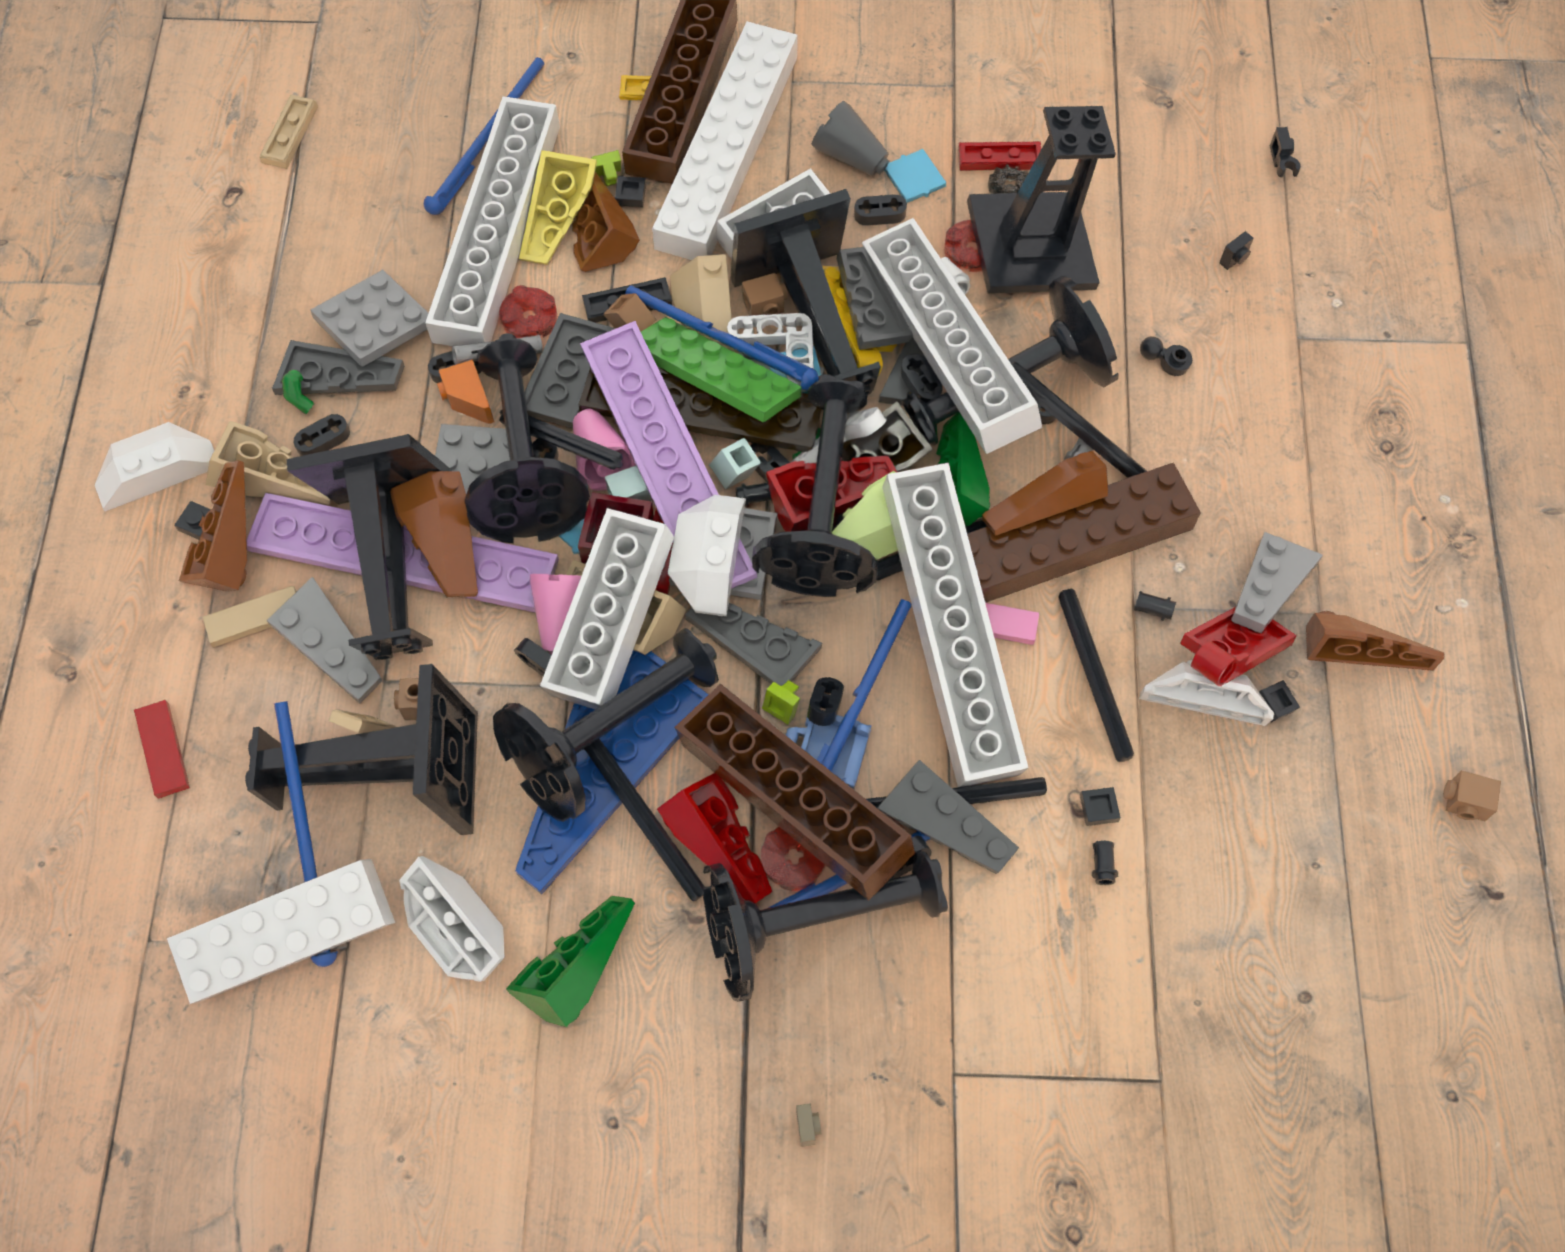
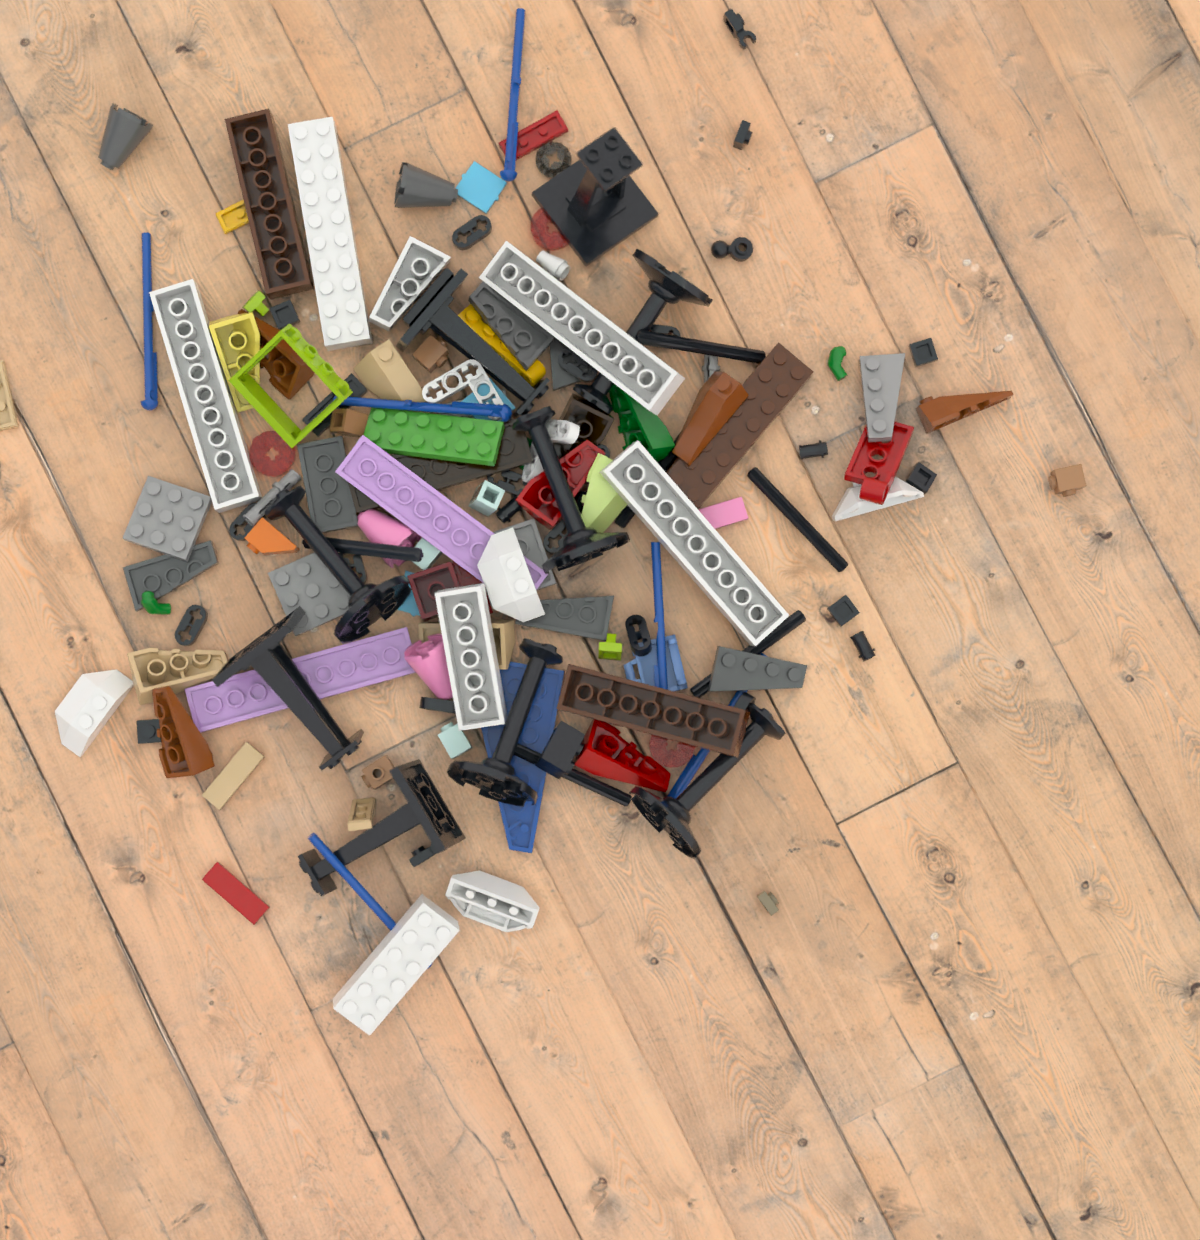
camera: 25 degrees left, 20 degrees up
(321, 636) = (289, 766): light grey wing -> none
(408, 821) = (422, 854): none -> black plate
(438, 522) = (324, 656): dark orange wedge -> none
(535, 699) = (454, 740): none -> light aqua brick
(549, 249) = (264, 403): none -> lime window
(568, 975) = (578, 891): green wedge -> none
(649, 778) = (560, 750): none -> black brick
(953, 168) = (509, 173): none -> blue bar
(1228, 526) = (835, 360): none -> green arm
(1346, 564) = (923, 352): none -> black plate

